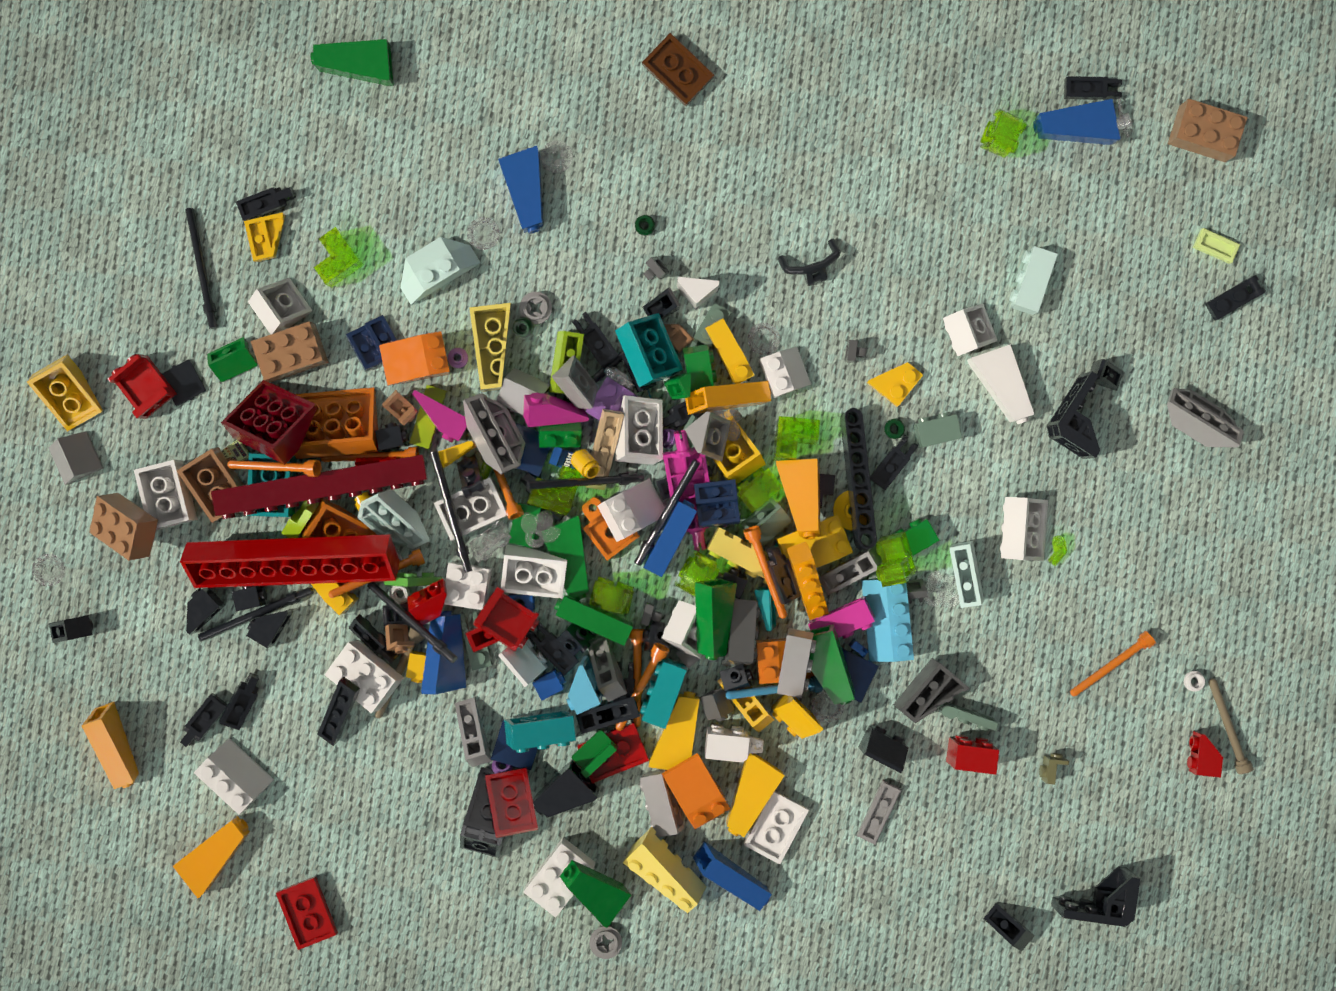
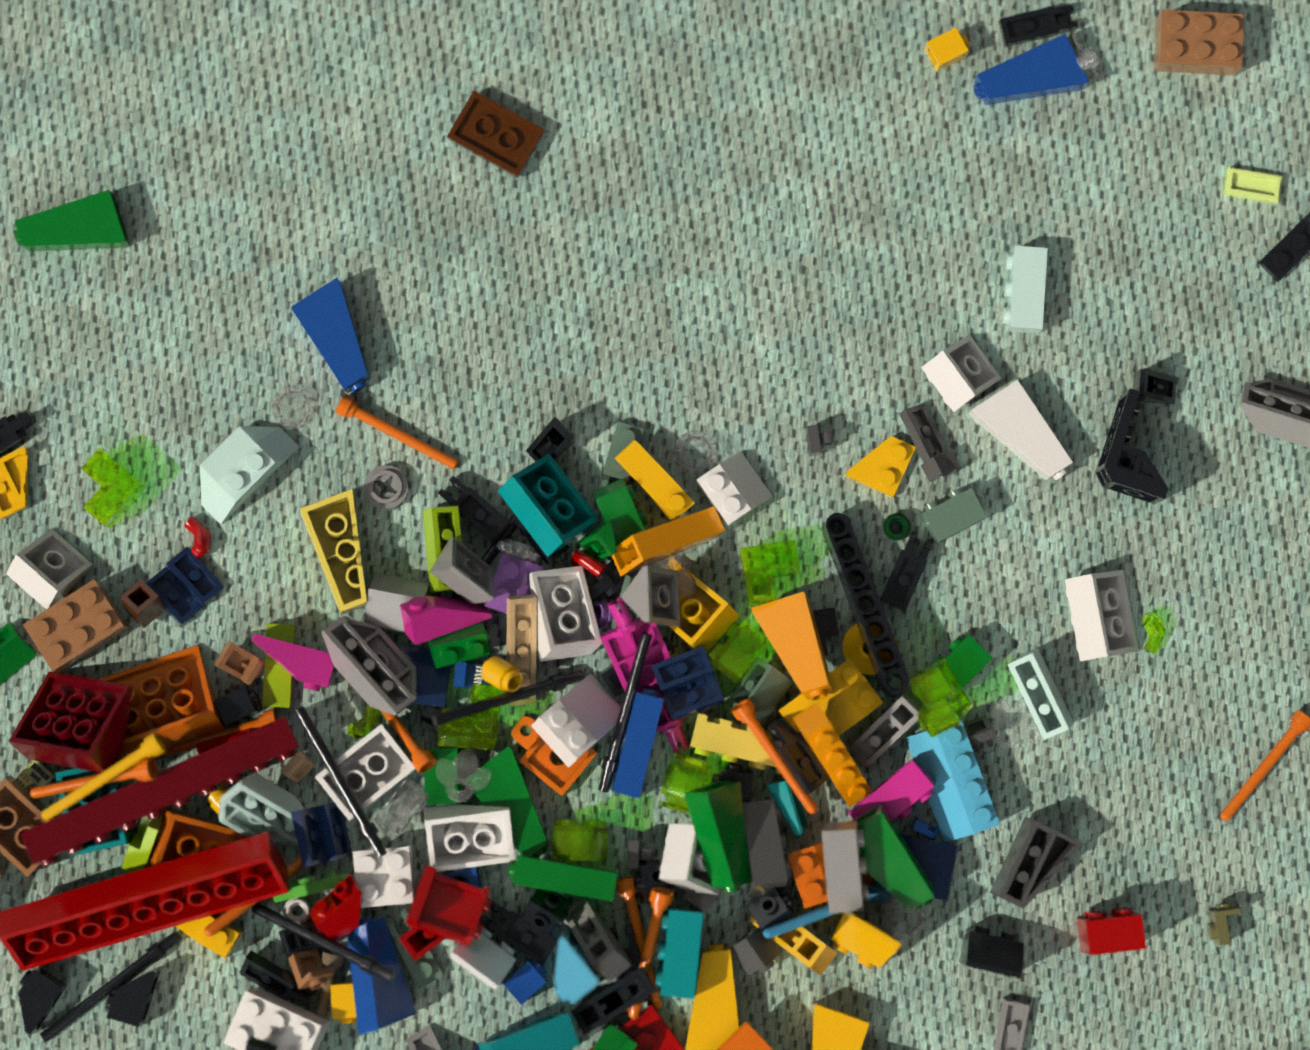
camera: 15 degrees left, 5 degrees down
(249, 597) = (98, 965): black brick -> none
(320, 453) = (150, 747): none -> yellow piece
(340, 347) = (142, 603): none -> reddish brown brick
(395, 310) = (202, 537): none -> red arm
(414, 358) = (243, 593): orange slope -> none
(424, 492) = (298, 766): none -> tan tile
(428, 545) = (321, 834): none -> dark blue slope
(453, 453) = (324, 705): yellow slope -> none
(458, 364) = (308, 578): medium lavender plate -> none
(470, 476) = (354, 728): black plate -> none
(517, 327) = (370, 522): dark green plate -> none
(522, 243) = (348, 407): none -> orange piece
(559, 165) = (373, 293): clear gear -> none
(641, 219) = (502, 335): dark green plate -> none
(656, 268) = (531, 396): dark grey tile -> none
(666, 397) = (584, 559): none -> red arm
(679, 336) = (582, 477): medium nougat tile -> none
(697, 290) = (591, 412): white slope -> none
(730, 743) = (787, 998): white hinge -> none
(810, 269) = (733, 347): black piece -> none
(933, 374) = (928, 442): none -> dark grey plate
(966, 716) = (1092, 882): sand green hinge -> none
(1002, 133) = (936, 112): clear neon green brick -> none
(1022, 89) = (947, 49): none -> yellow brick

